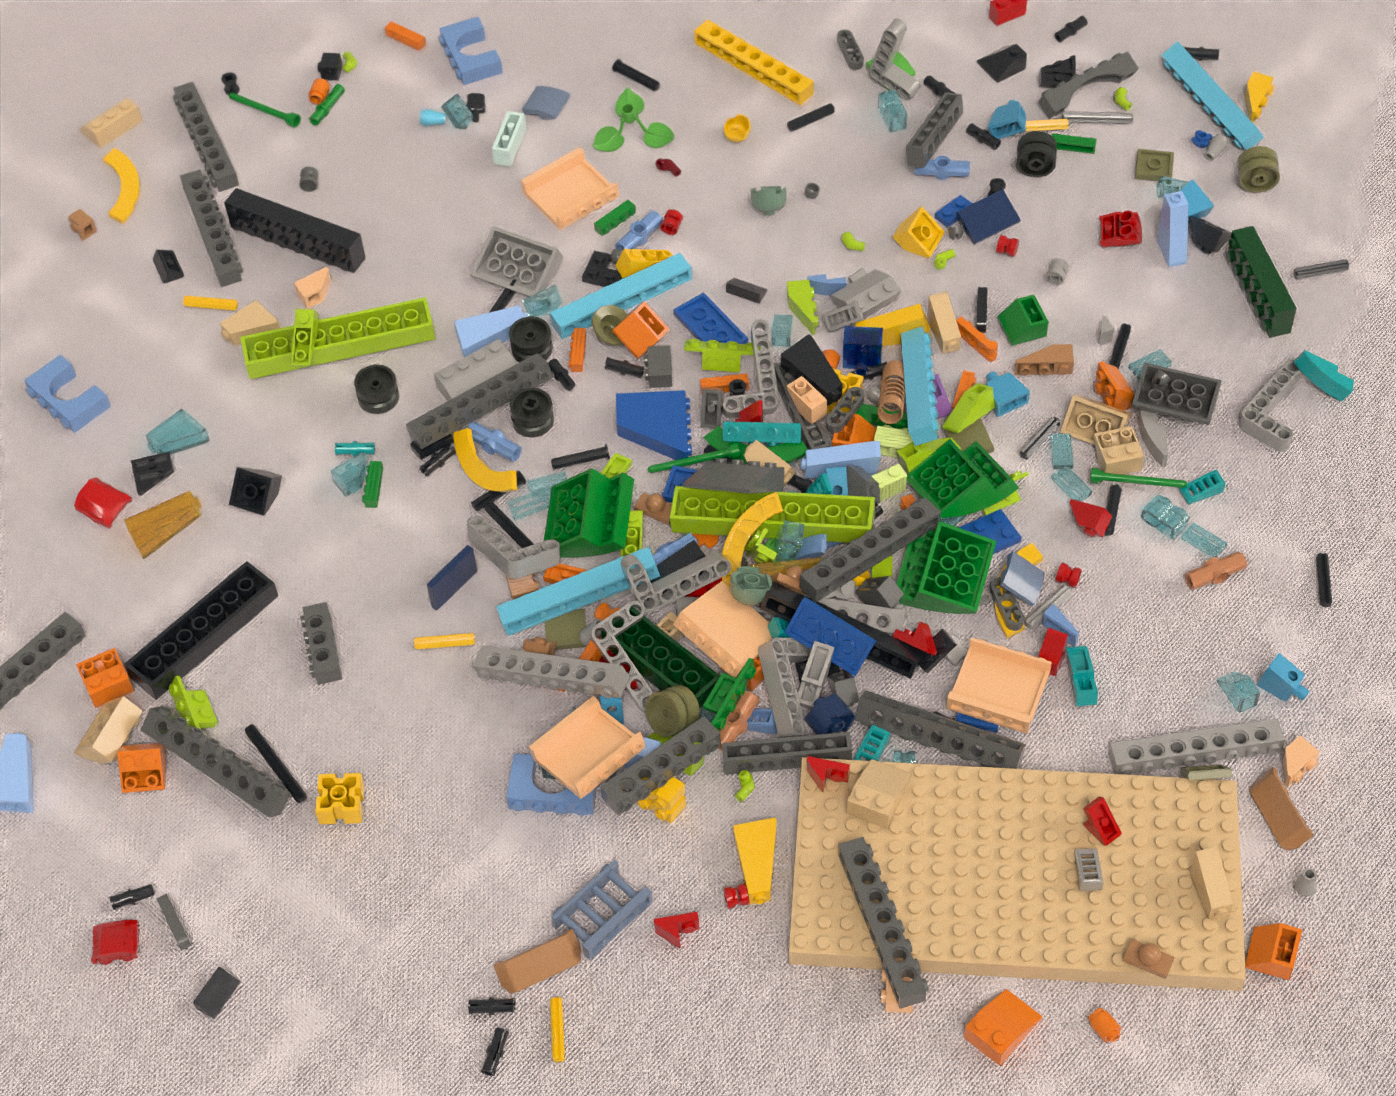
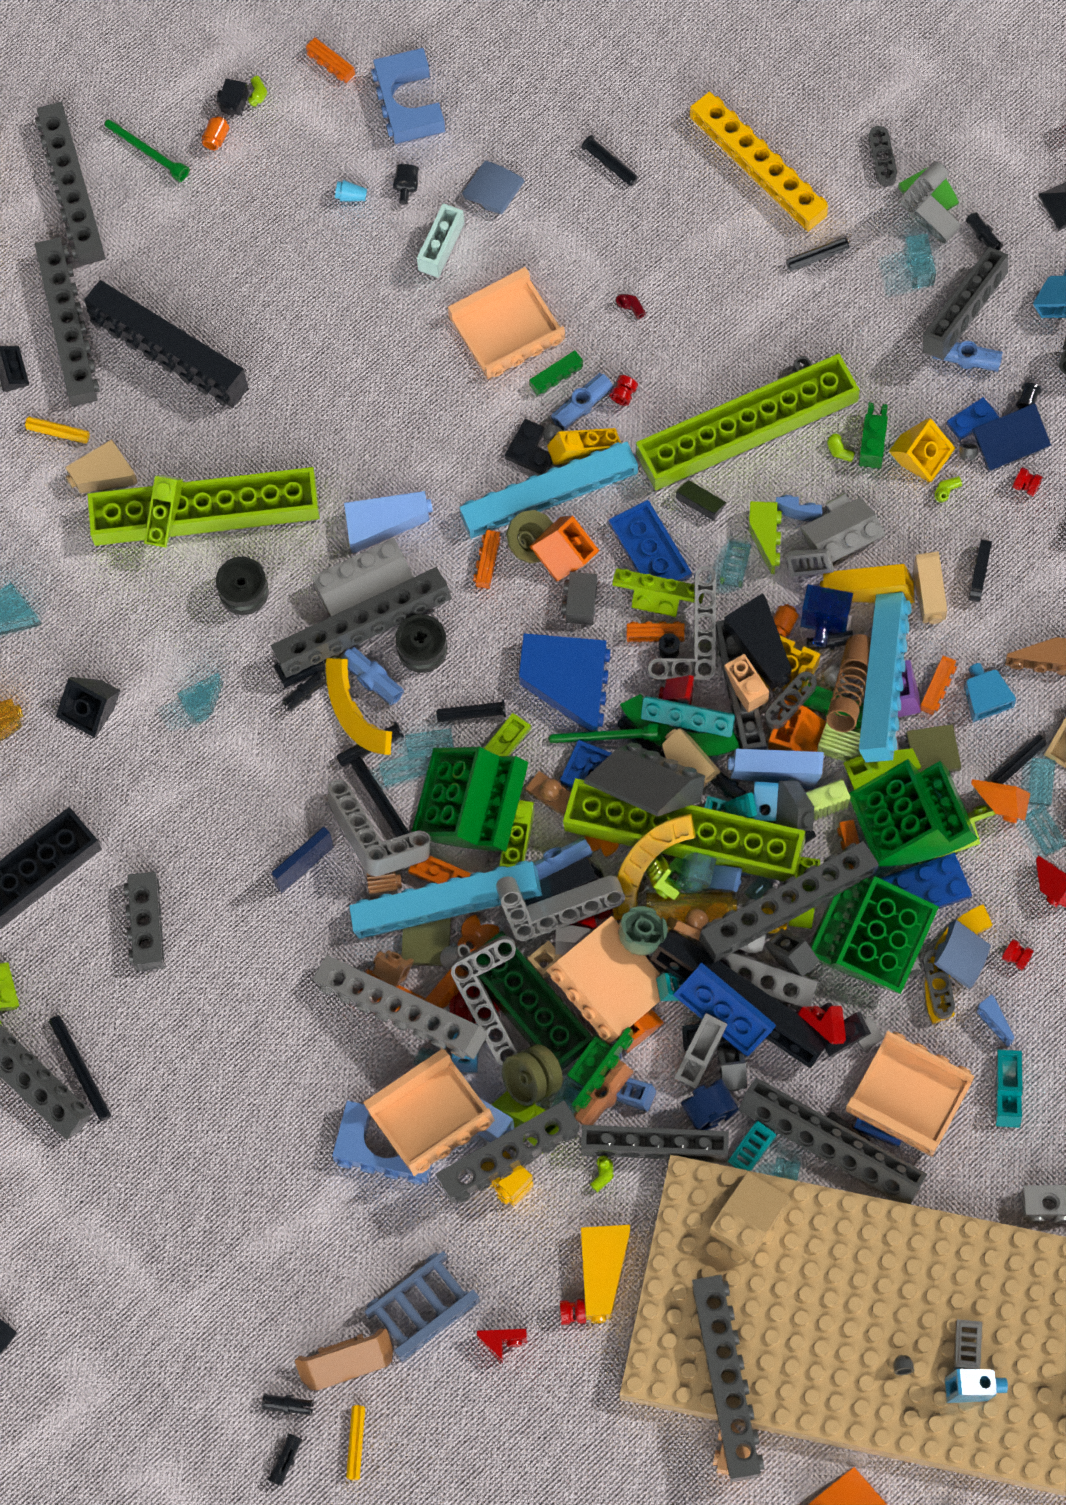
camera: 10 degrees right, 15 degrees up
(229, 80) = (107, 107): black bush -> none
(308, 179) = (190, 265): dark grey wheel -> none
(313, 288) = (182, 427): light nougat slope -> none
(322, 110) = (218, 161): green pin -> none
(340, 798) = (138, 1116): yellow brick -> none
(354, 448) = (209, 662): teal pin -> none
(373, 484) = (226, 712): green piece -> none
(444, 641) = (285, 936): yellow axle -> none
(457, 112) = (382, 189): clear light blue slope -> none
(504, 298) = (408, 472): black axle -> none
(519, 258) = (427, 428): light grey slope -> none
(530, 336) = (432, 541): pearl dark grey wheel -> none
(543, 302) = (454, 487): clear light blue slope -> none
(561, 374) = (463, 592): black axle -> none
(624, 367) = (539, 593): black pin -> none
(629, 107) = (593, 205): bright green plant -> none
(711, 407) = (635, 663): dark grey slope -> none
(737, 128) = (723, 262): yellow hair -> none
(768, 198) = (746, 373): sand green cylinder -> none
(774, 230) = (747, 421): none -> lime brick
(780, 684) = (660, 1058): light grey beam -> none
(823, 769) = (688, 1179): red slope -> none
(878, 230) = (873, 437): none -> green hinge
(972, 405) = (941, 713): lime slope -> none
(977, 339) = (966, 612): orange plate -> none
(992, 141) = (1027, 313): black pin -> none
(1023, 320) = (1027, 596): green slope -> none
(1034, 459) = (1004, 799): none -> orange slope
(1035, 892) = (903, 1365): none -> dark grey hinge
(1054, 649) = (980, 1057): red slope -> none
(1056, 599) = (992, 987): light grey axle -> none
(1099, 896) = (973, 1385): none -> dark azure torso
(1101, 821) = (992, 1292): red slope -> none
(1148, 958) = (1014, 1465): medium nougat tile -> none

